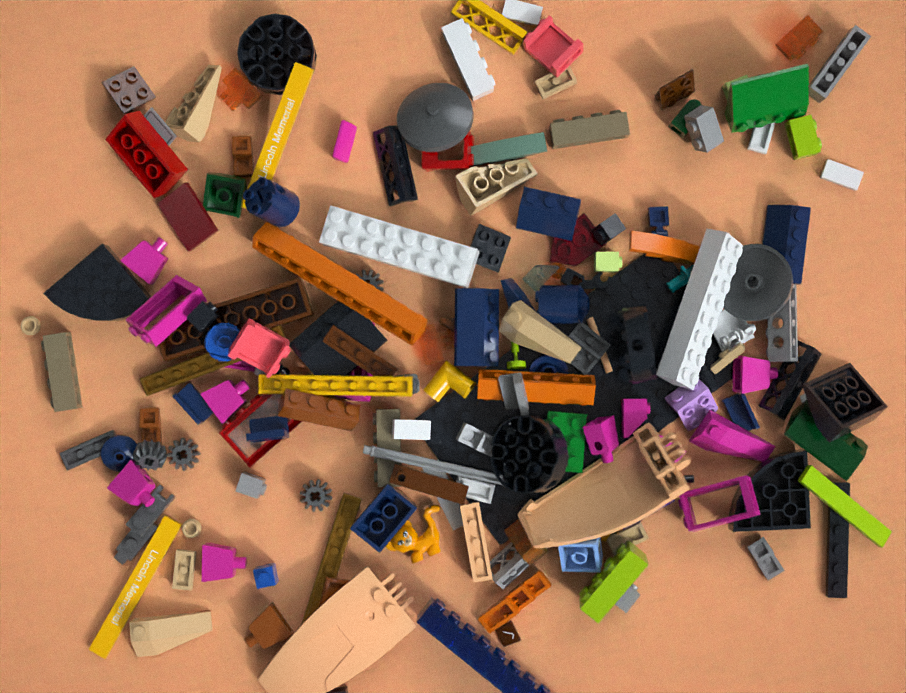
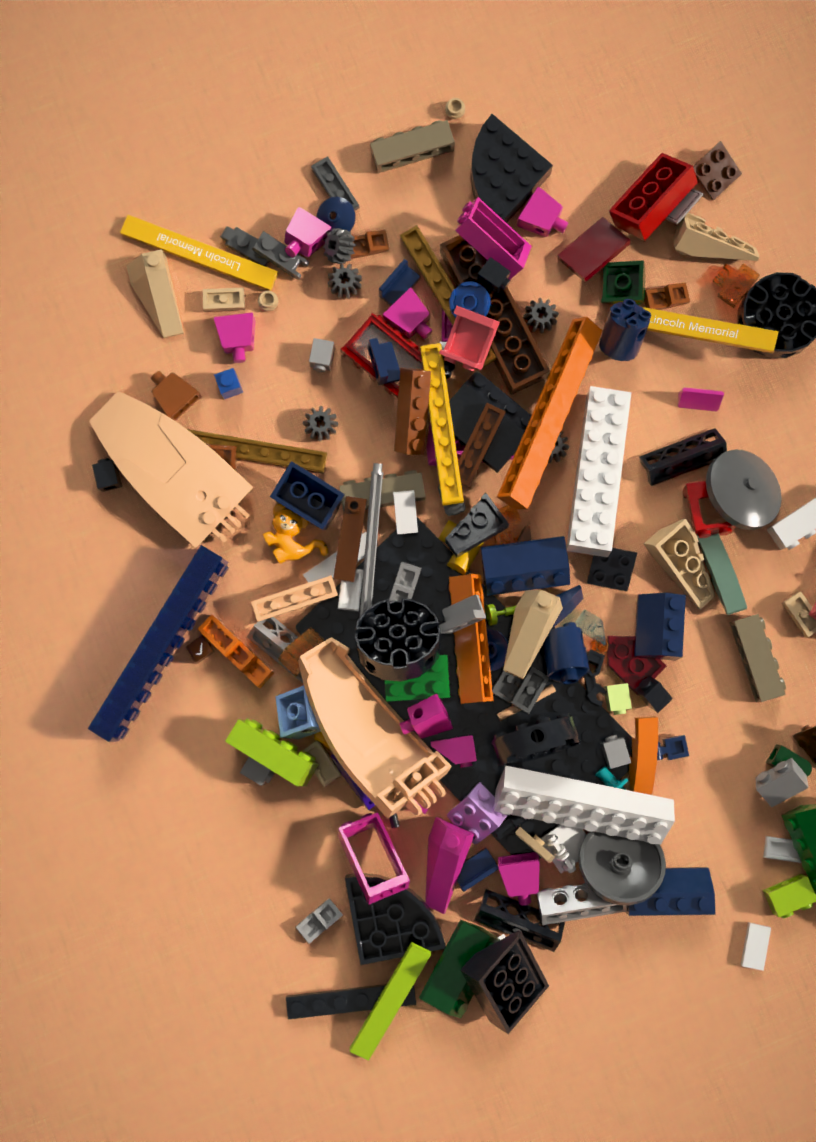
camera: 80 degrees right, 5 degrees down
(243, 284) = (546, 321): none -> dark grey gear
(434, 365) = (478, 526): none -> black wing
(655, 272) = (615, 752): none -> light grey brick

